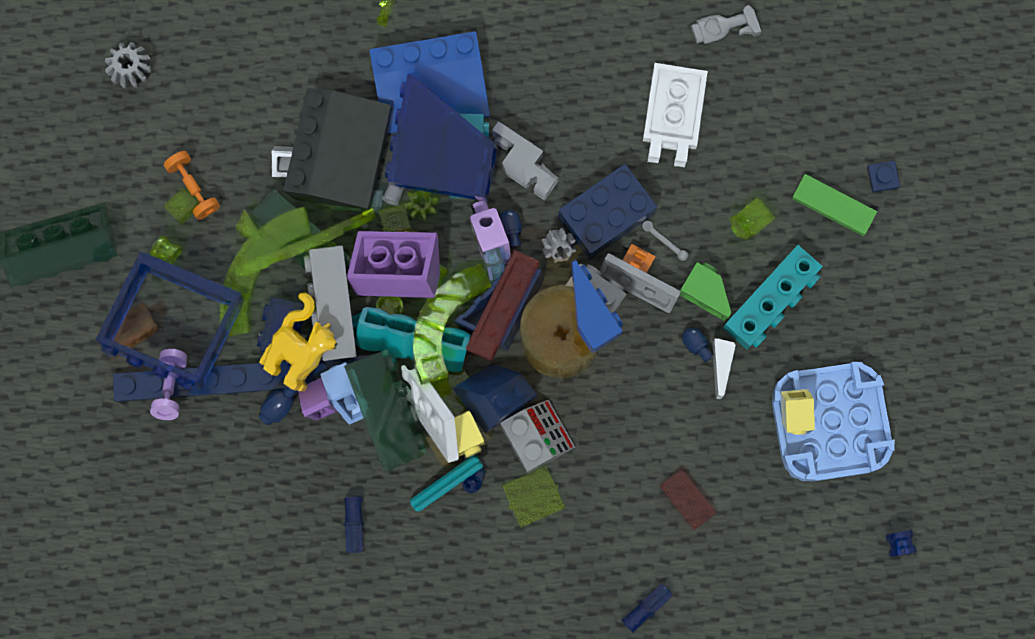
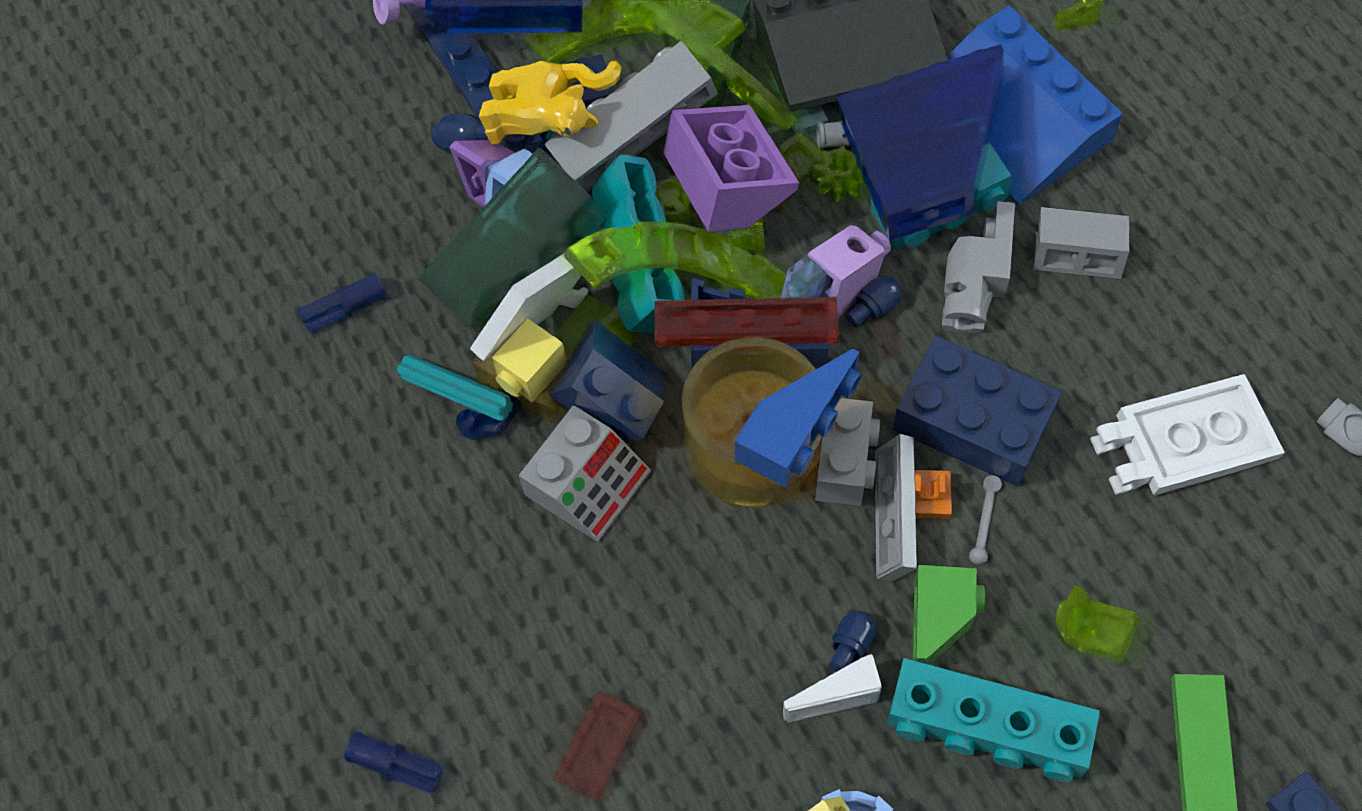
camera: 70 degrees right, 15 degrees down
(533, 496) = (494, 518): clear neon green piece -> none
(535, 98) = (1081, 243): none -> light grey hinge
(558, 245) = (883, 363): light grey gear -> none

